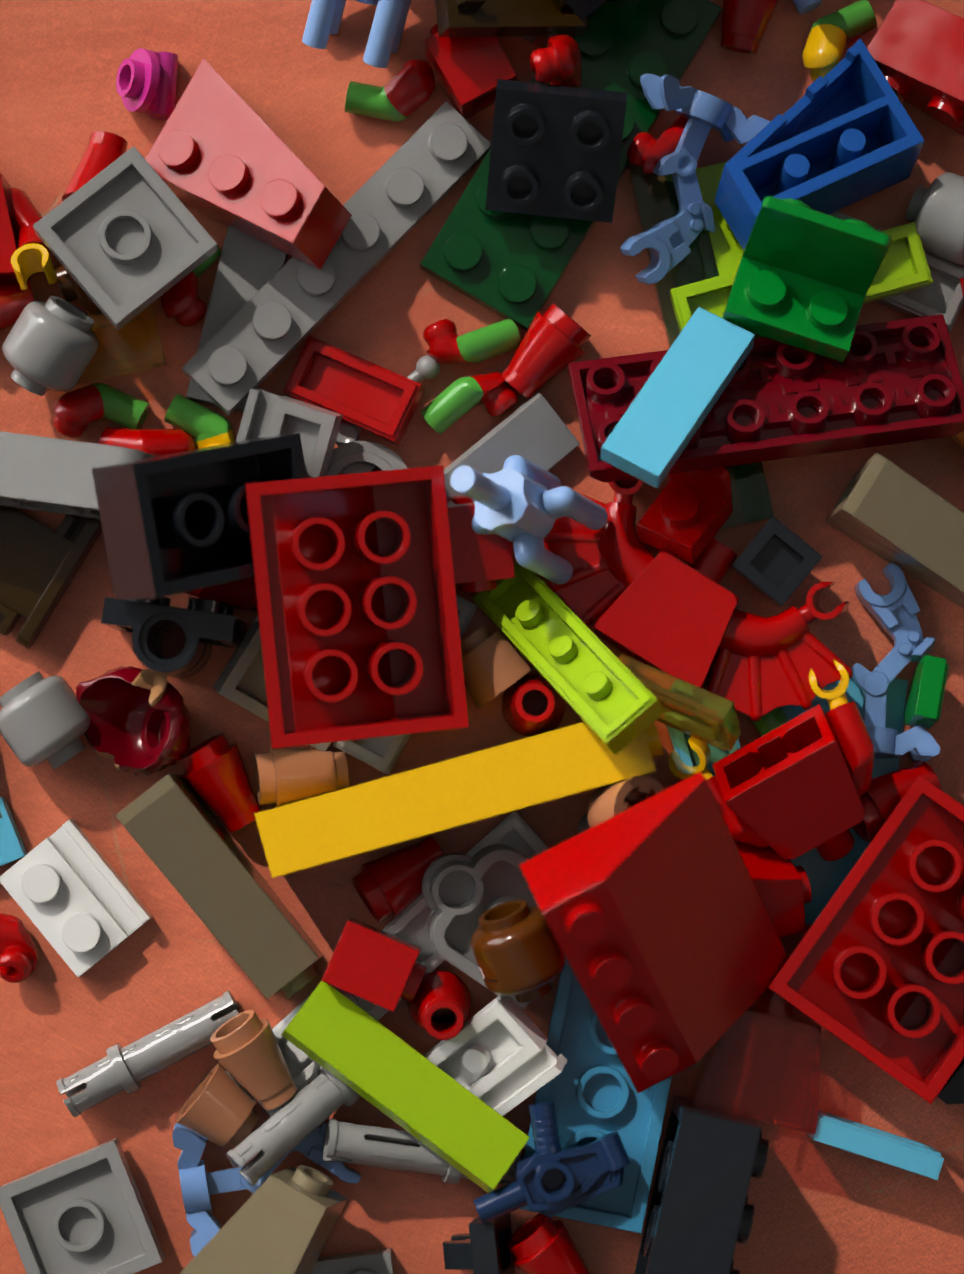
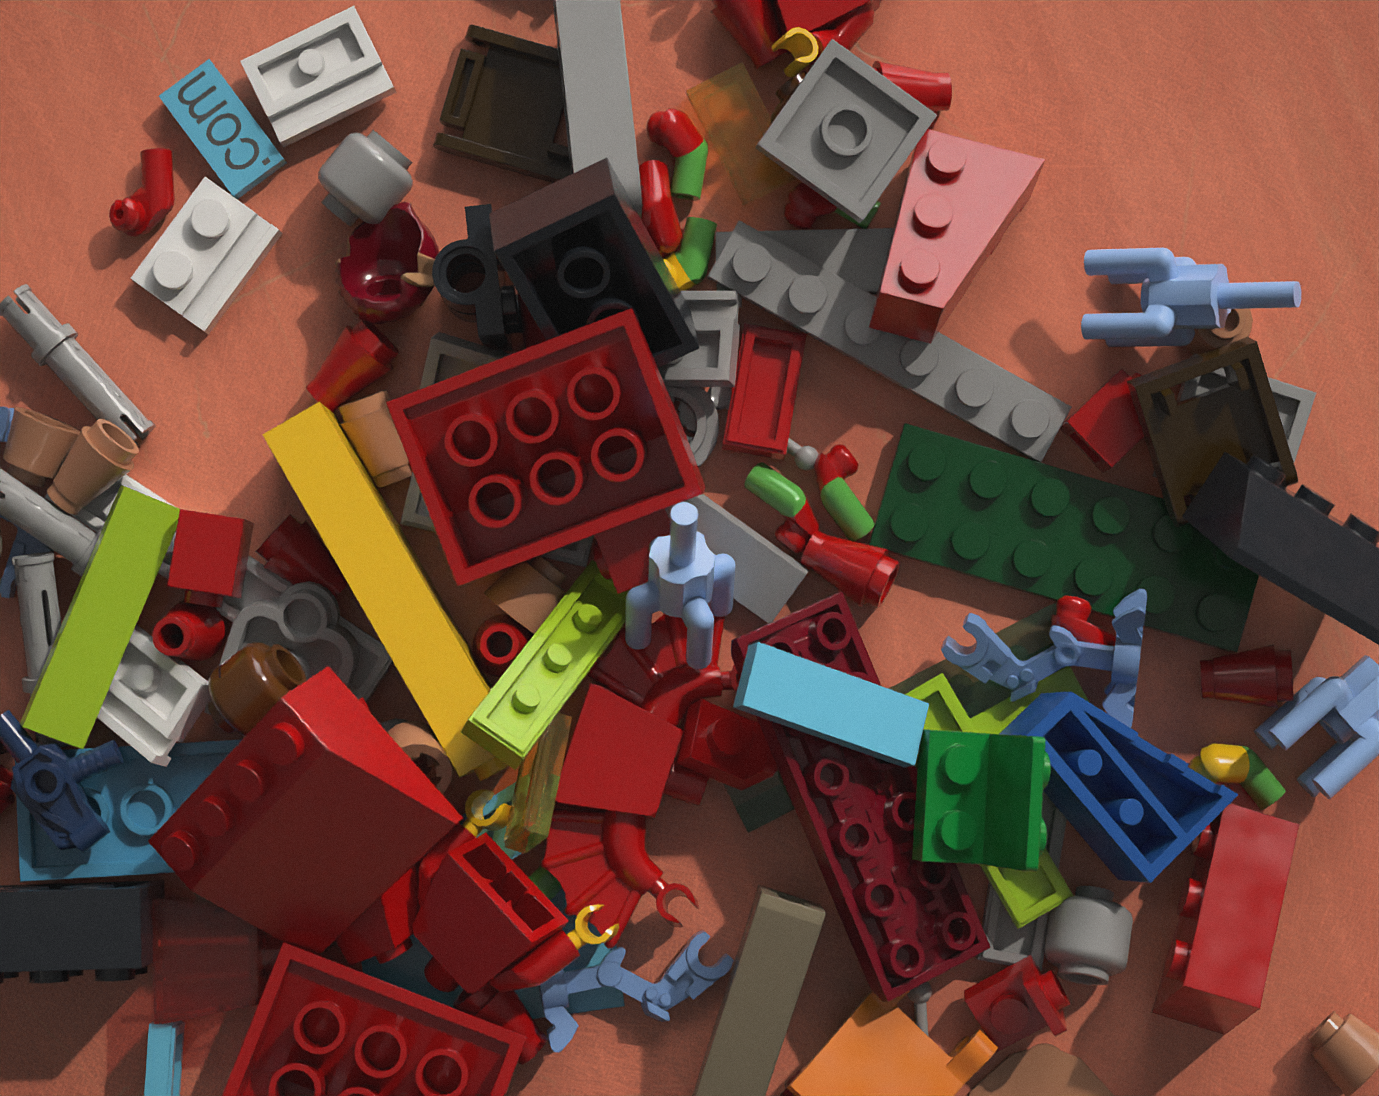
camera: 75 degrees right, 0 degrees up
(50, 346) = (726, 88): light grey head -> none
(149, 83) = (1012, 114): dark pink plate -> none
(221, 885) = (249, 391): dark tan slope -> none
(397, 98) = (1064, 359): arm -> none
(555, 150) = (1044, 524): black plate -> none
(558, 63) = (1130, 505): red arm -> none
(776, 561) = (702, 845): black tile -> none
(926, 692) = (613, 1025): green tile -> none

